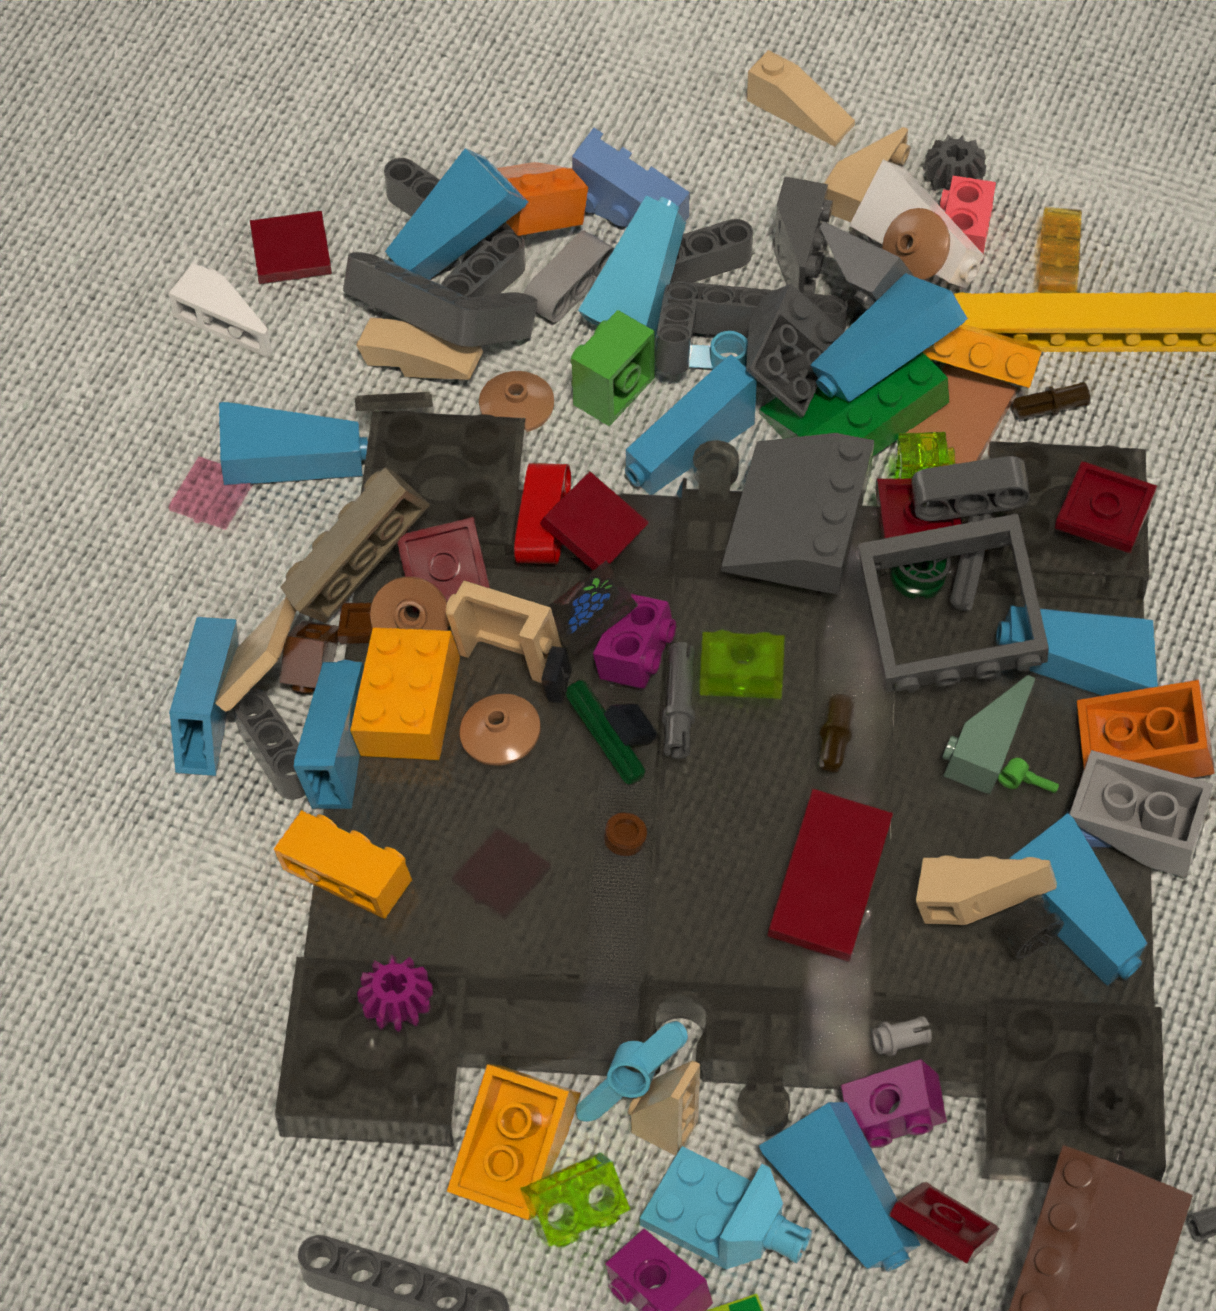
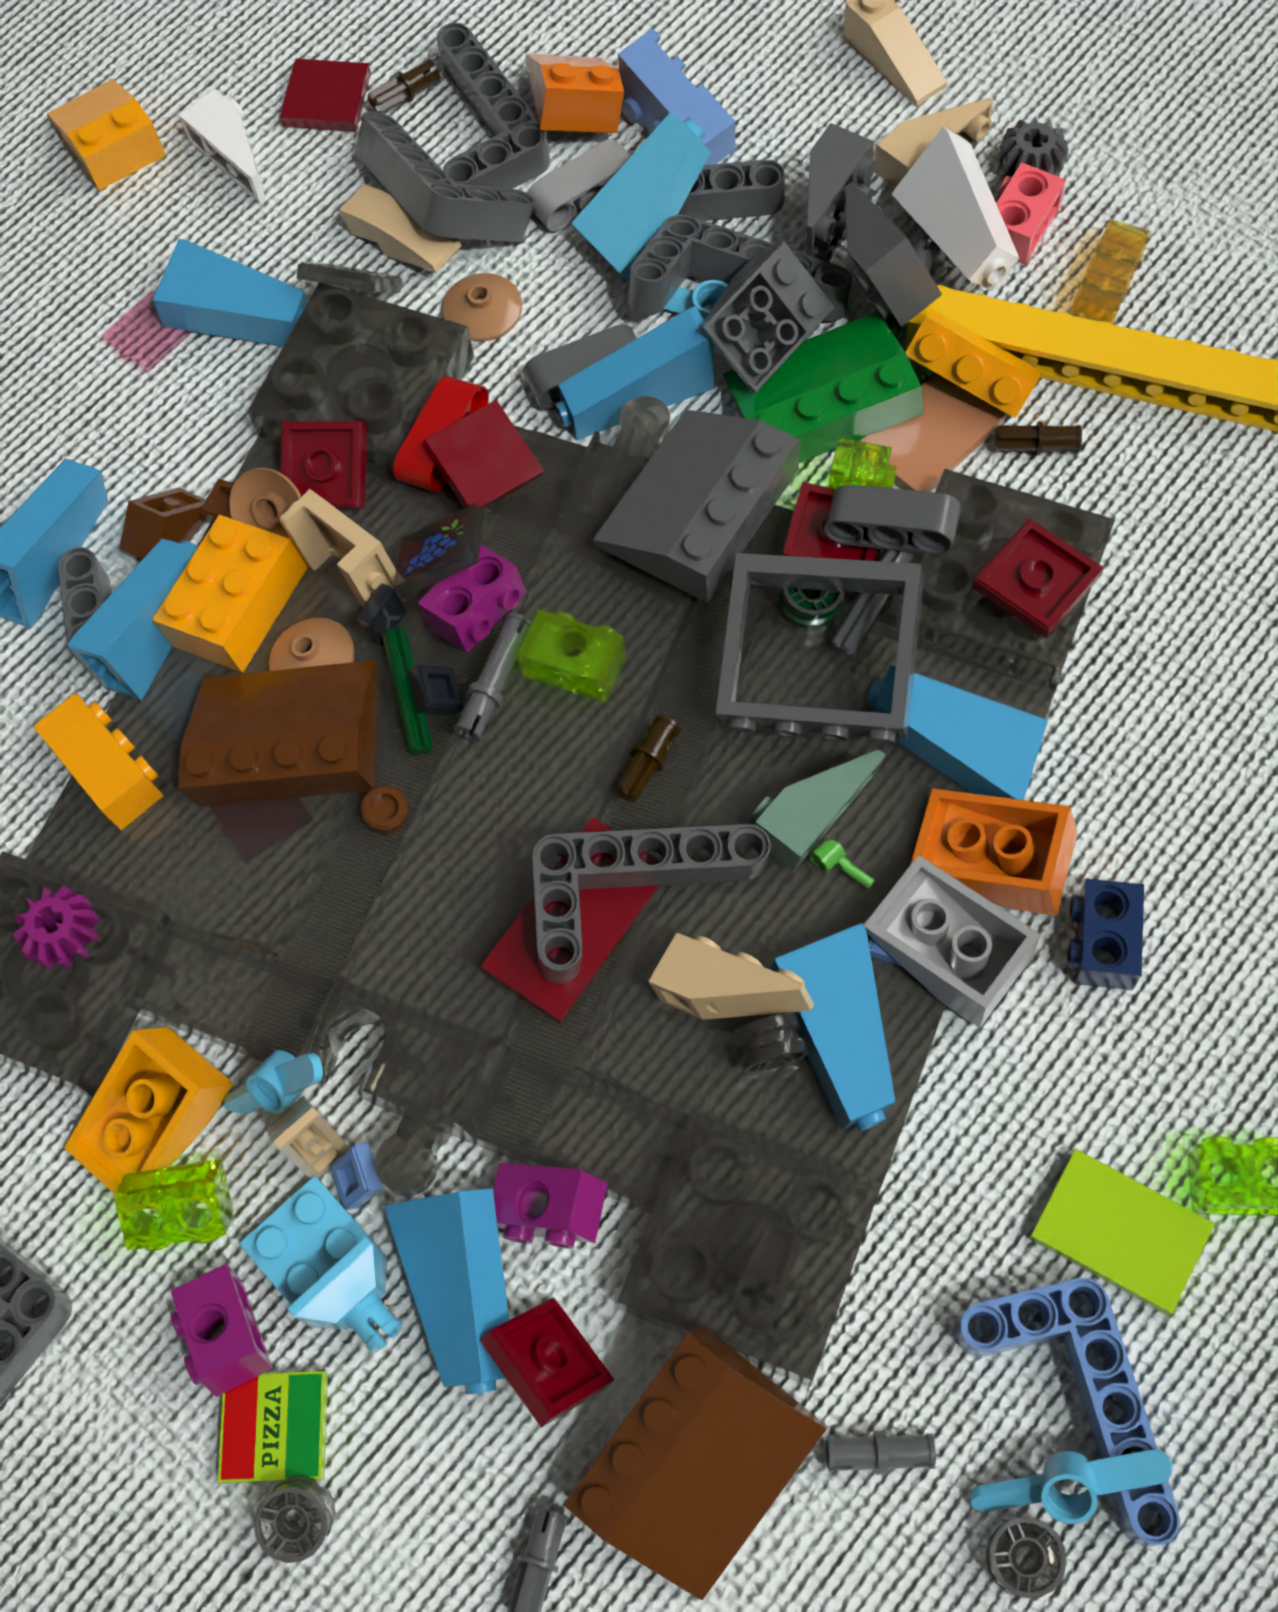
camera: 25 degrees right, 10 degrees up
(94, 323) = (108, 133): none -> light orange slope
(256, 655) = (94, 514): tan tile -> none
(353, 545) = (231, 423): dark tan slope -> none
(364, 224) = (403, 86): none -> dark brown axle
(455, 215) = (479, 93): dark azure slope -> none
(510, 795) = (281, 735): none -> reddish brown slope
(609, 441) = (557, 365): none -> dark grey beam
(613, 367) = (580, 290): bright green brick -> none
(719, 1135) = (356, 1176): none -> medium blue tile
(864, 819) = (628, 872): none -> dark grey beam
(887, 336) = (867, 325): dark azure slope -> none
(898, 1036) = (576, 1129): light grey pin -> none
(929, 244) = (948, 229): medium nougat dish -> none

